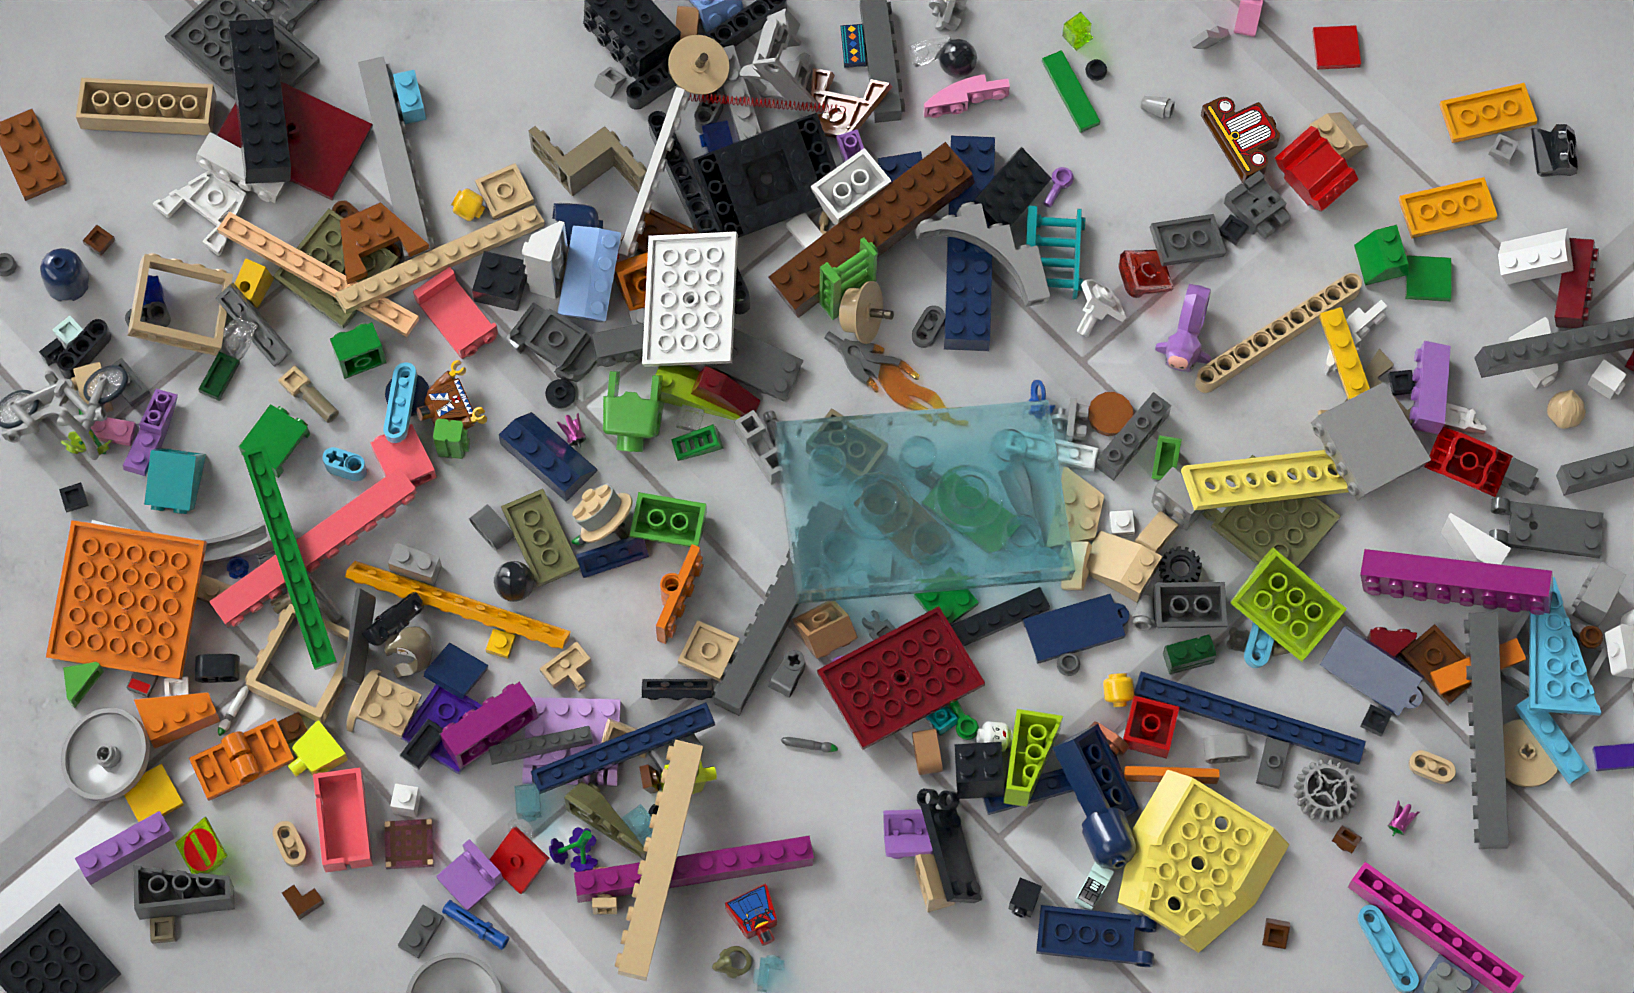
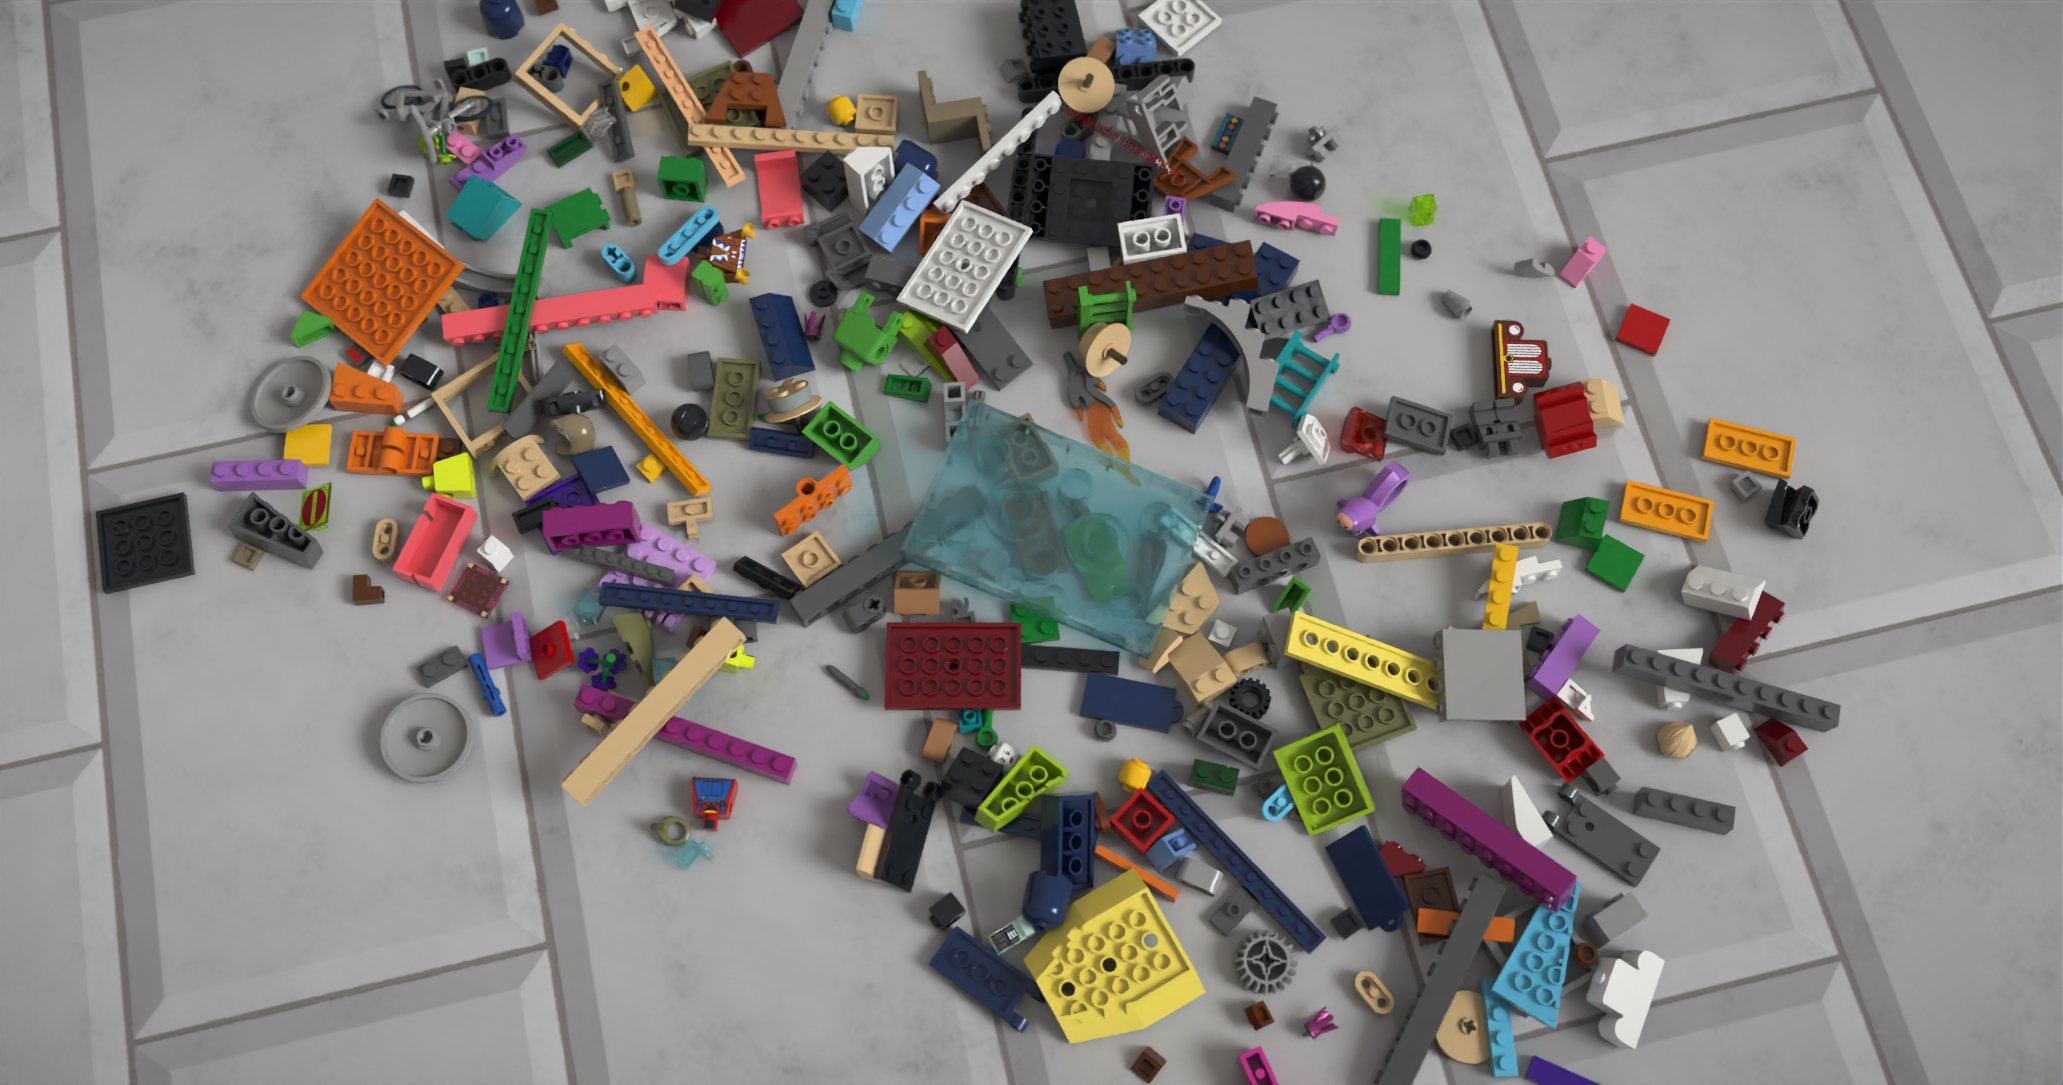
camera: 30 degrees right, 0 degrees up
(1189, 737) = (1171, 849): none -> medium blue slope

